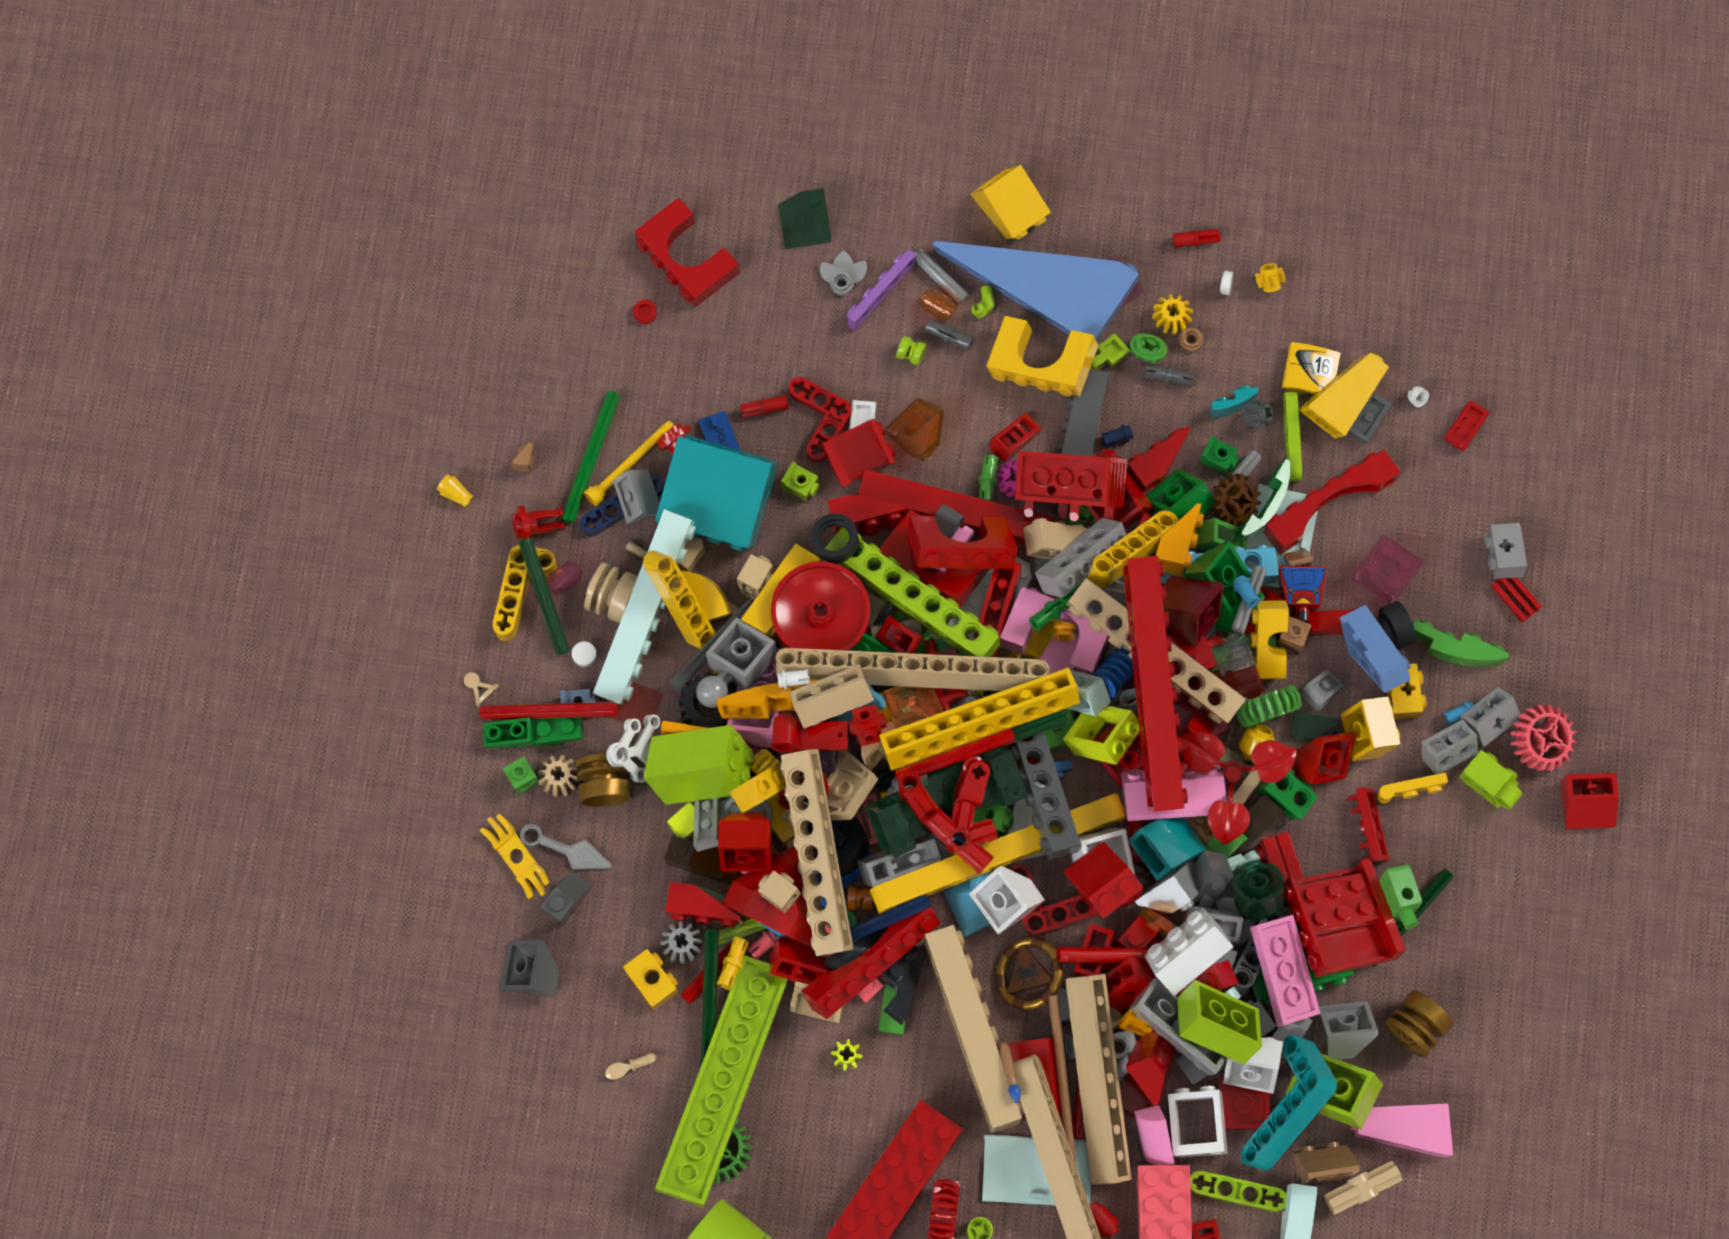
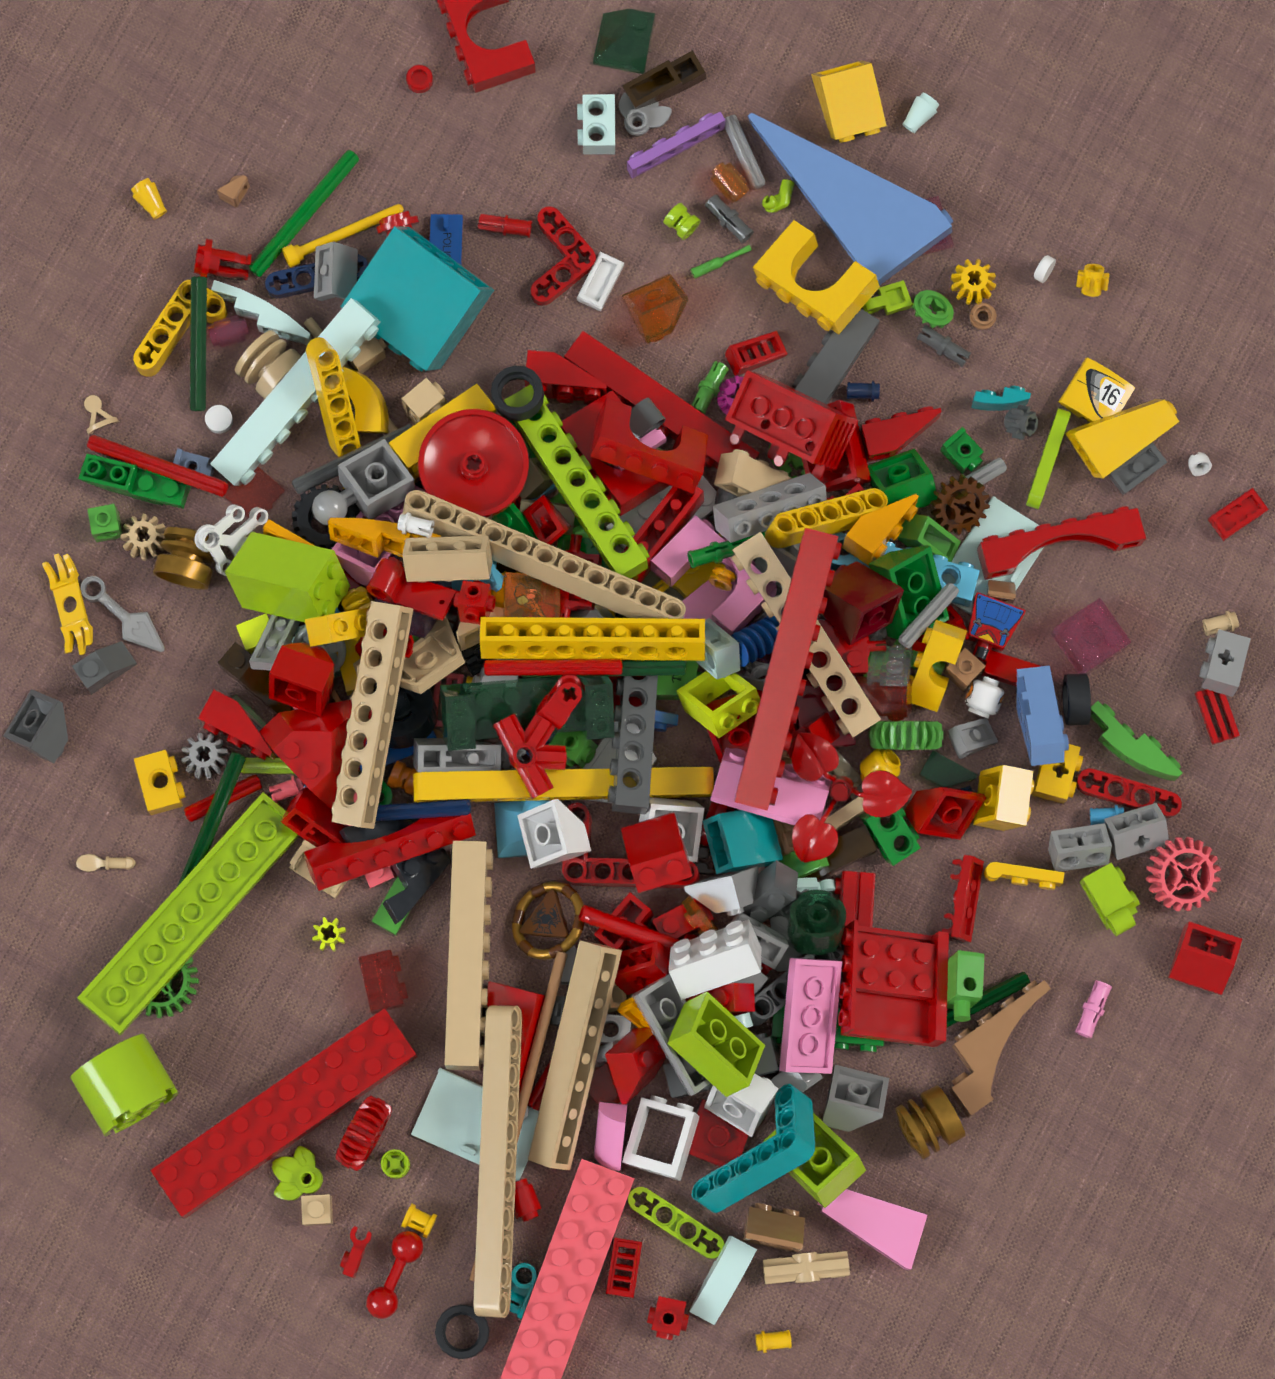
camera: 15 degrees right, 5 degrees up
(592, 551) = (267, 315): none -> light aqua slope
(732, 963) = (247, 797): yellow pin -> none
(779, 890) = (317, 740): tan brick -> none
(802, 491) = (512, 330): lime brick -> none
(813, 295) = (602, 124): none -> light aqua brick
(852, 240) = (665, 80): none -> dark brown slope
(858, 450) = (583, 308): red panel -> none
(907, 1078) = (382, 981): none -> clear red brick
(917, 797) = (495, 696): red piece -> none
(953, 374) = (716, 263): none -> bright green piece
(1013, 1089) = (484, 1015): medium nougat piece -> none
(1073, 192) = (920, 112): none -> light aqua cone
(1196, 238) = (1031, 208): red axle -> none
(1243, 587) = (927, 606): dark azure pin -> none
(1279, 483) = (1012, 502): slope -> none
(1319, 652) = (984, 697): none -> white head
(1436, 944) = (983, 1046): none -> medium nougat arch
(1469, 684) = (1129, 789): none -> red beam
(1494, 516) = (1223, 622): none -> tan pin
(1514, 879) = (1093, 1009): none -> bright pink pin

